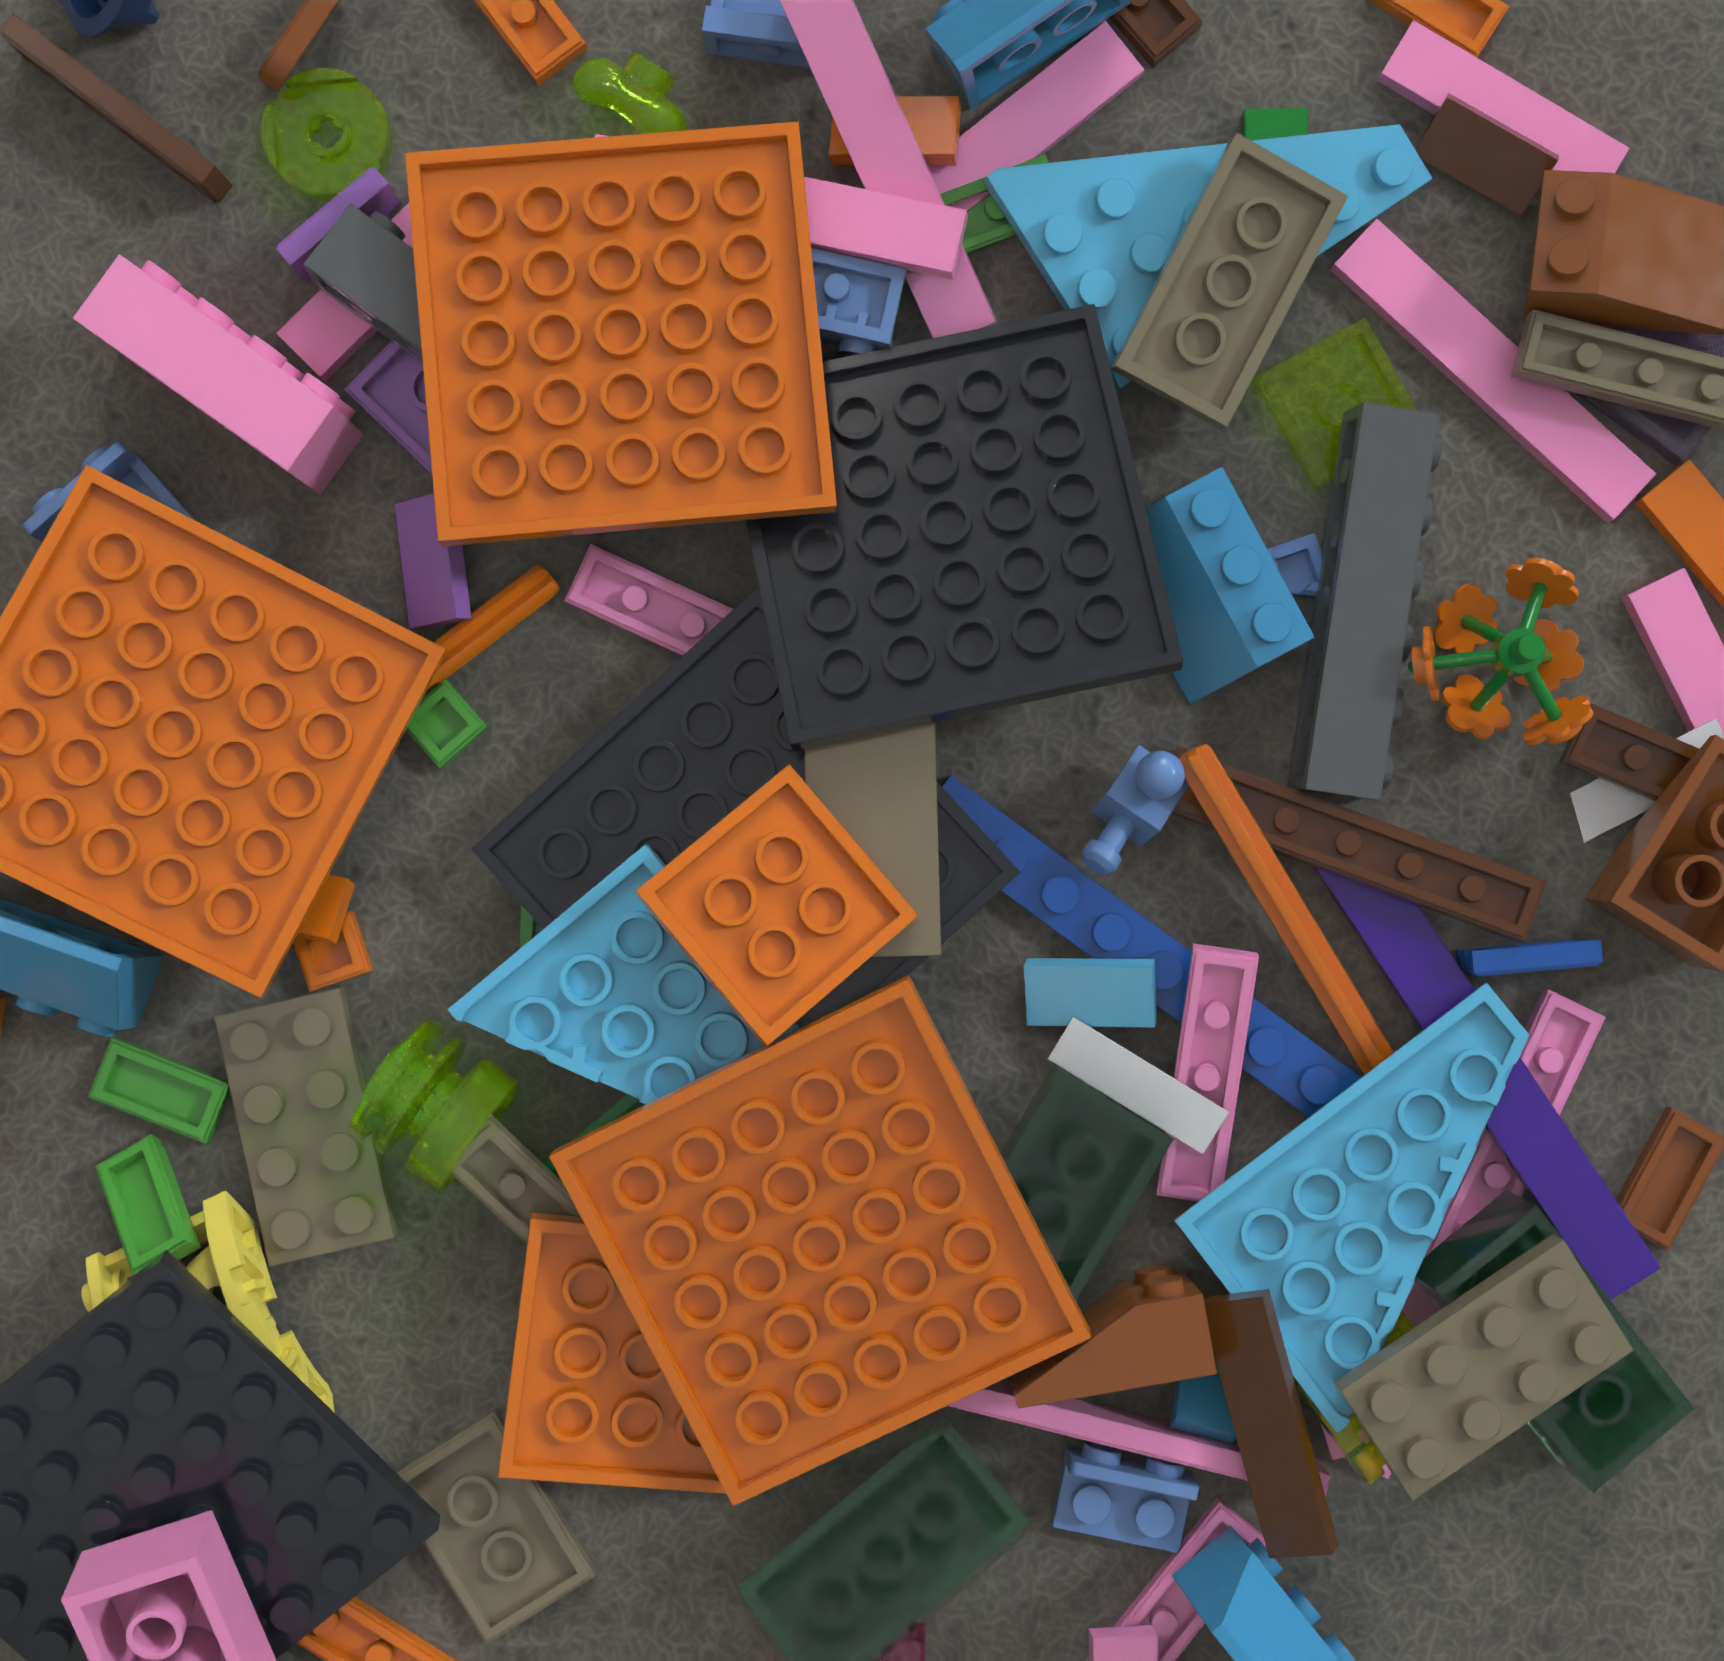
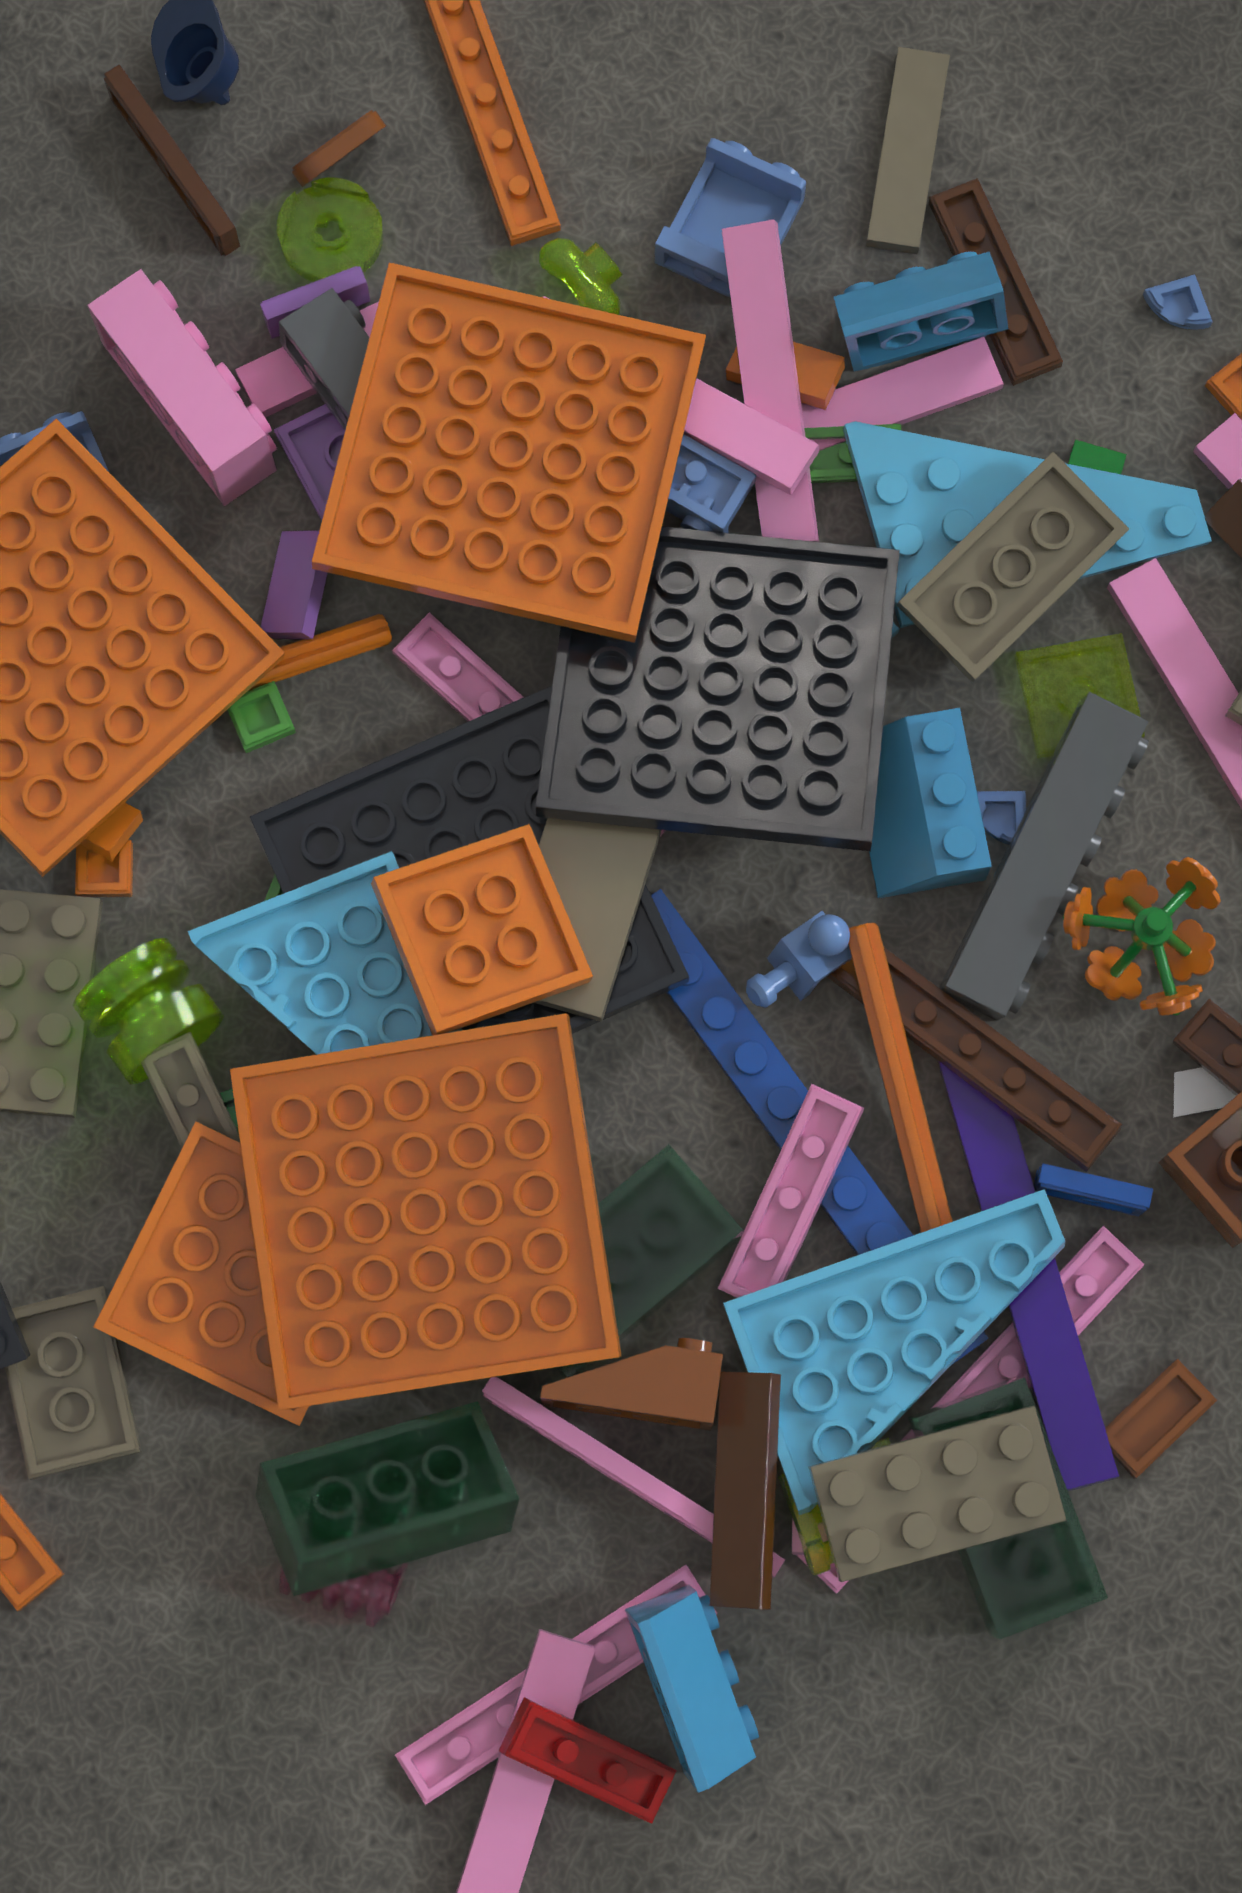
camera: 20 degrees right, 10 degrees down
(1091, 991) = (716, 1100): medium azure tile -> none
(1123, 1497) = (606, 1534): medium blue bracket -> none
(1138, 1085) = (733, 1187): white sticker -> none
(1202, 1409) = (696, 1473): dark azure tile -> none

